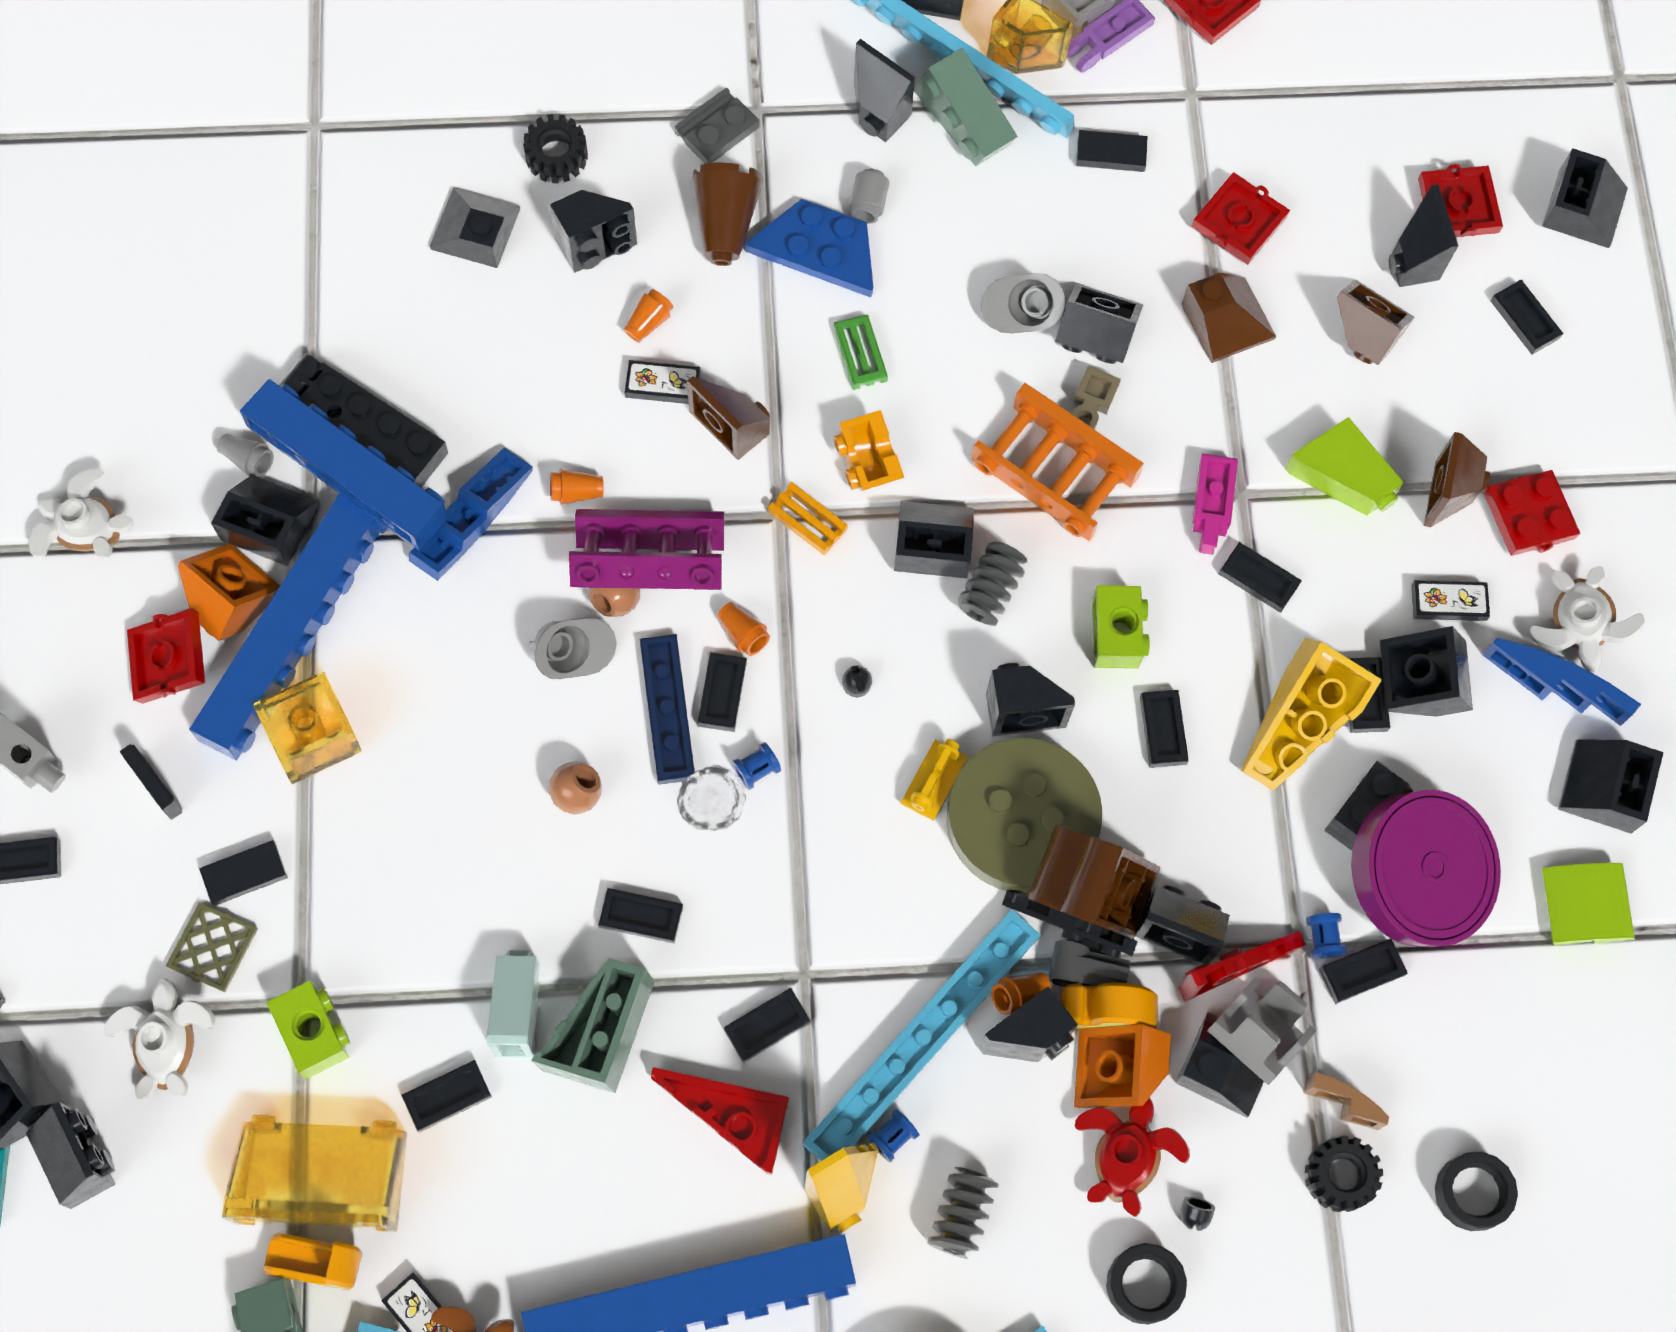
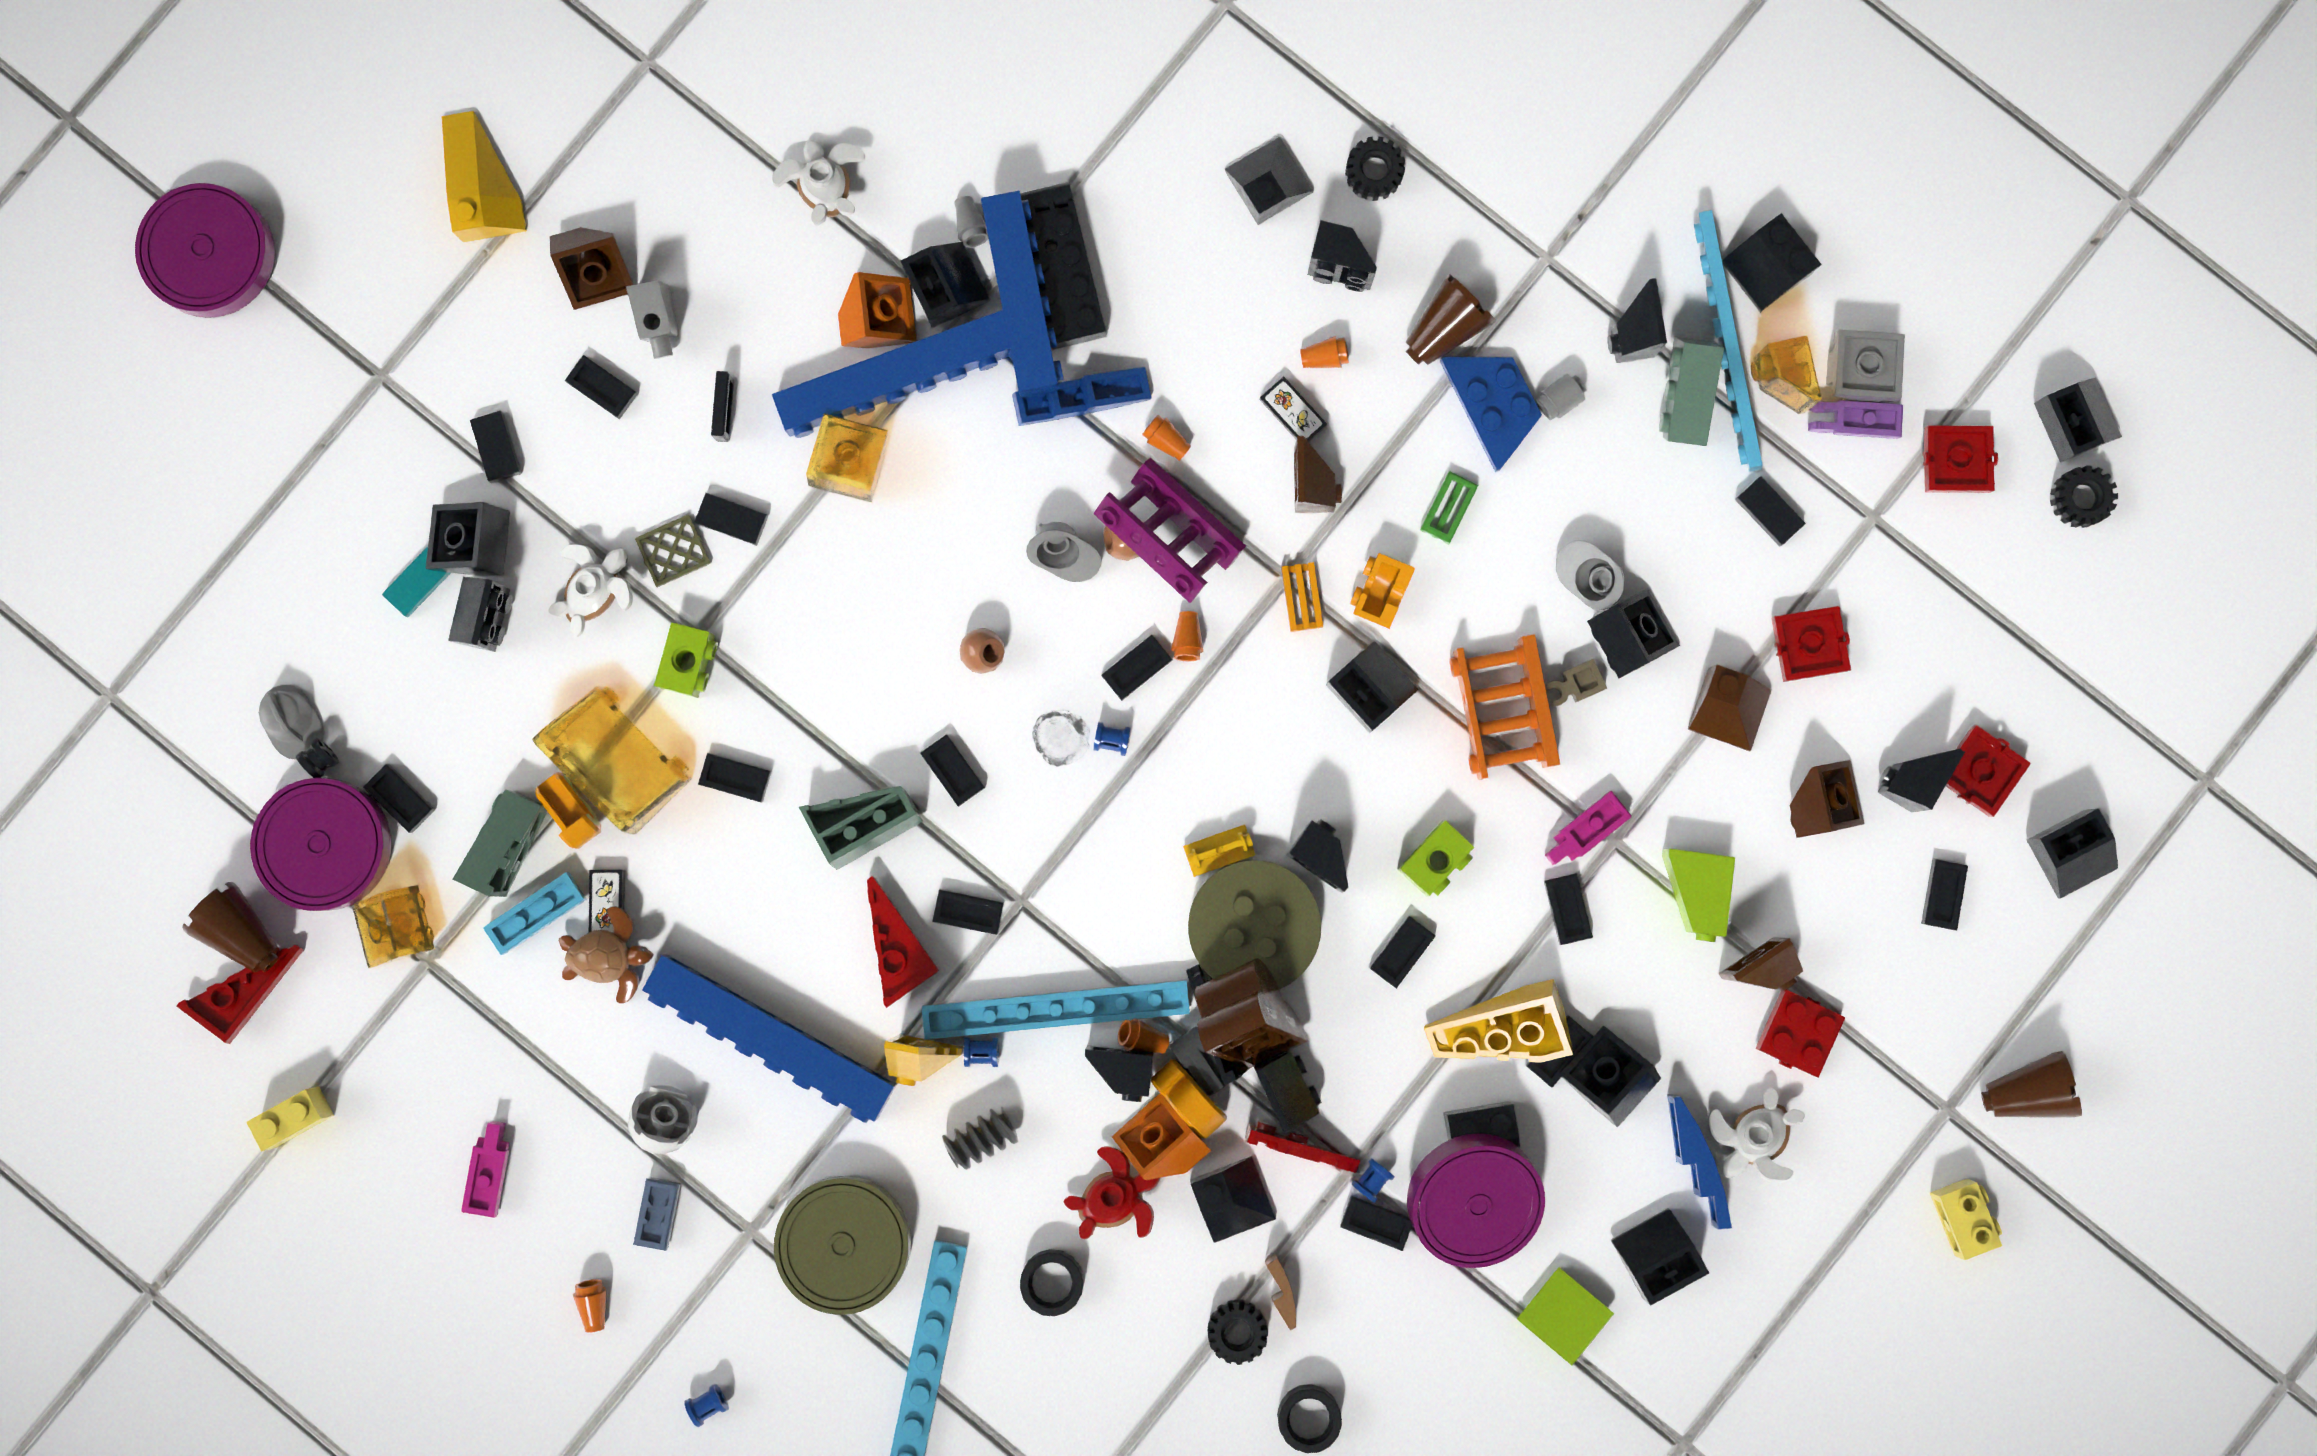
camera: 50 degrees right, 15 degrees up
(165, 656) = (799, 327): red plate -> none
(514, 1005) = (821, 759): light aqua slope -> none
(667, 708) = (1091, 647): dark blue tile -> none
(717, 126) = (1505, 247): dark grey plate -> none
(849, 684) = (1237, 742): black hinge -> none
(990, 581) = (1379, 754): dark grey piece -> none
(1197, 1212) = (1124, 1269): black hinge -> none
(1263, 1028) = (1270, 1202): light grey panel -> none
(1450, 600) = (1681, 1041): tile -> none

